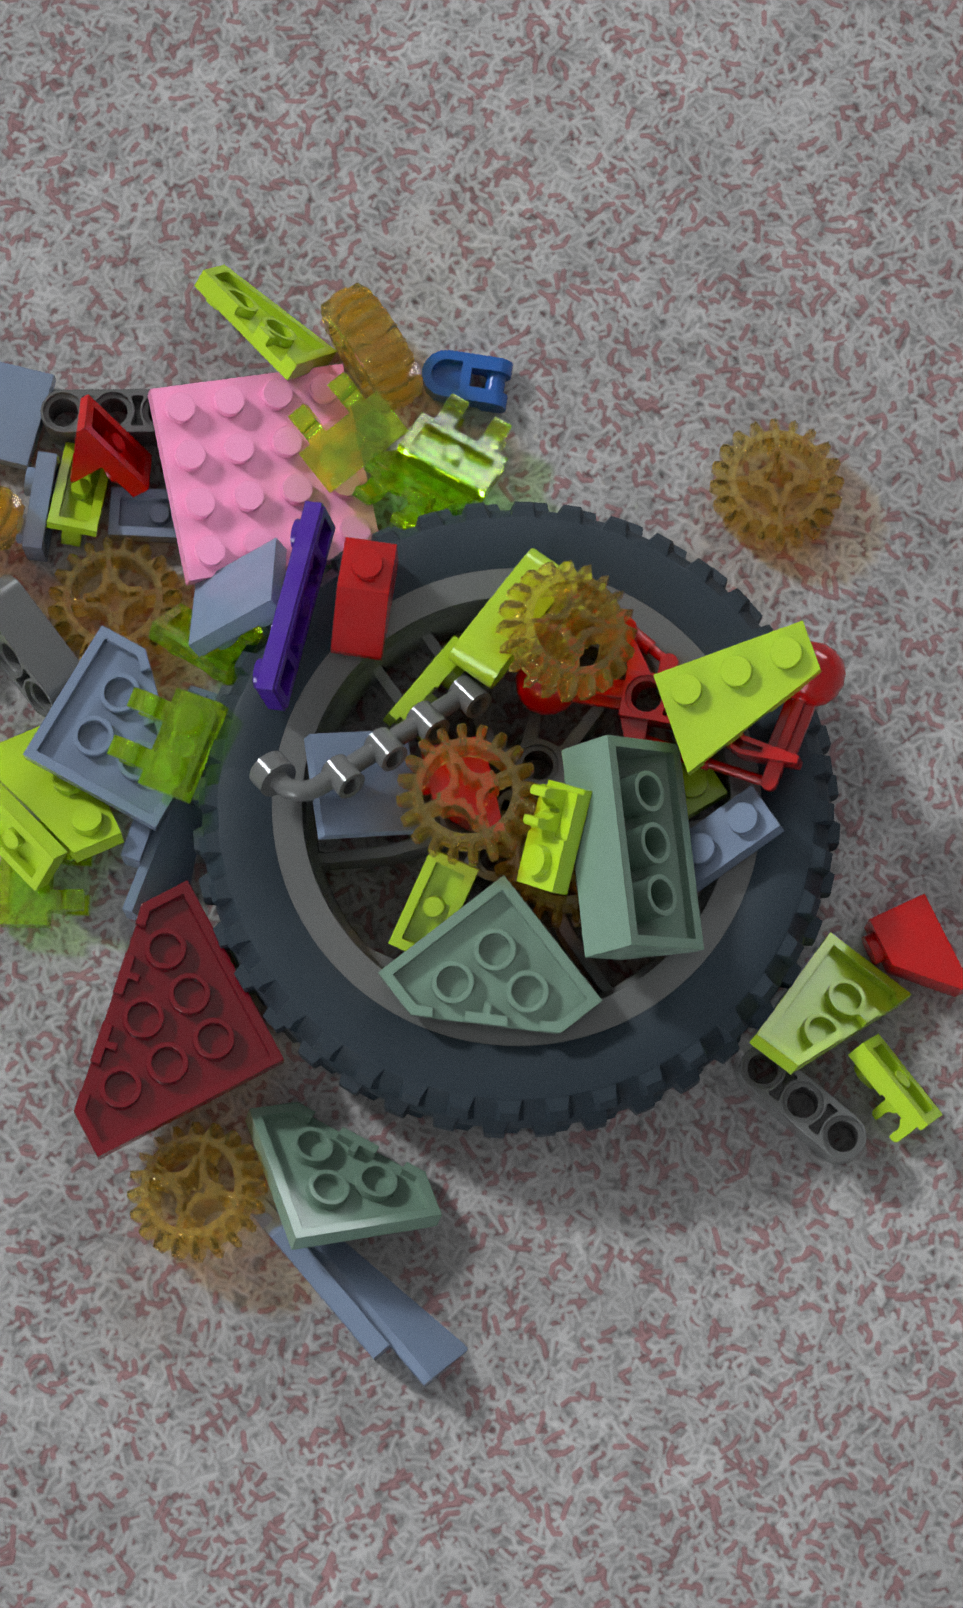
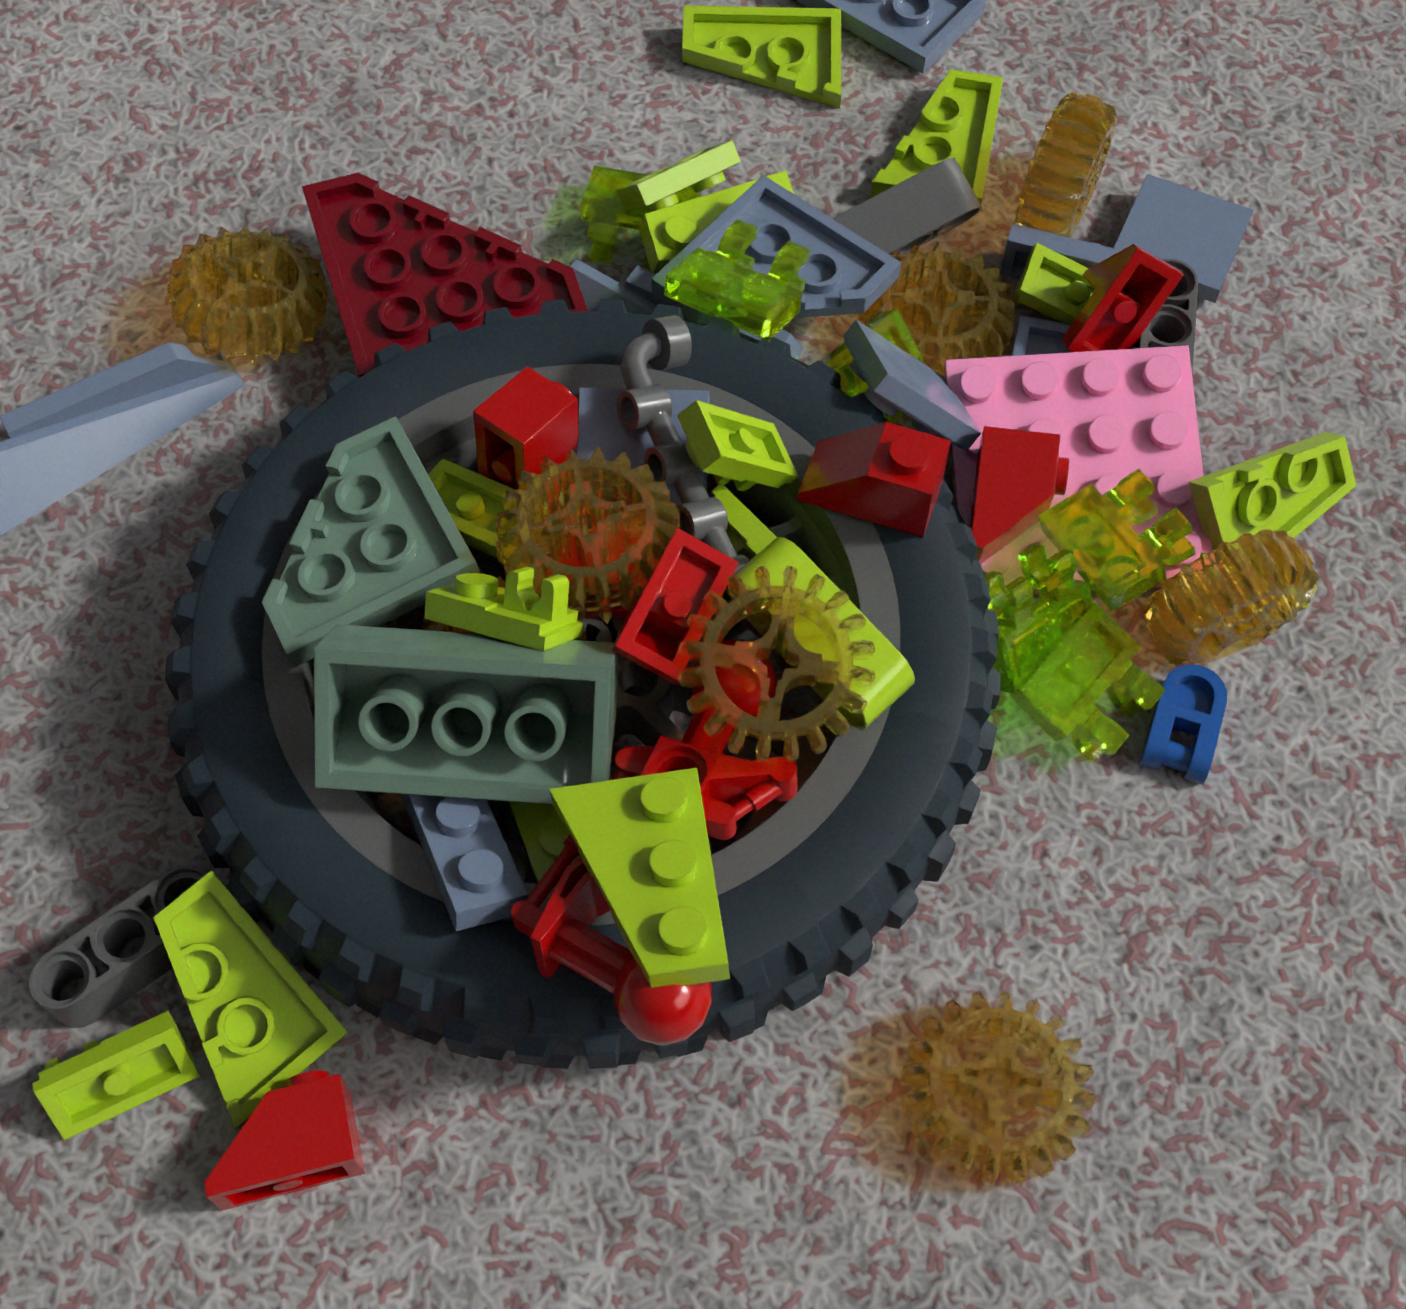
camera: 100 degrees right, 15 degrees down
(286, 502) = (1013, 485): none -> red slope
(310, 545) = (865, 397): dark purple plate -> none
(331, 1188) = (205, 414): sand green plate -> none
(365, 700) = (735, 447): none -> lime plate
(377, 864) = (524, 424): none -> red slope
(524, 712) = (670, 596): none -> red slope

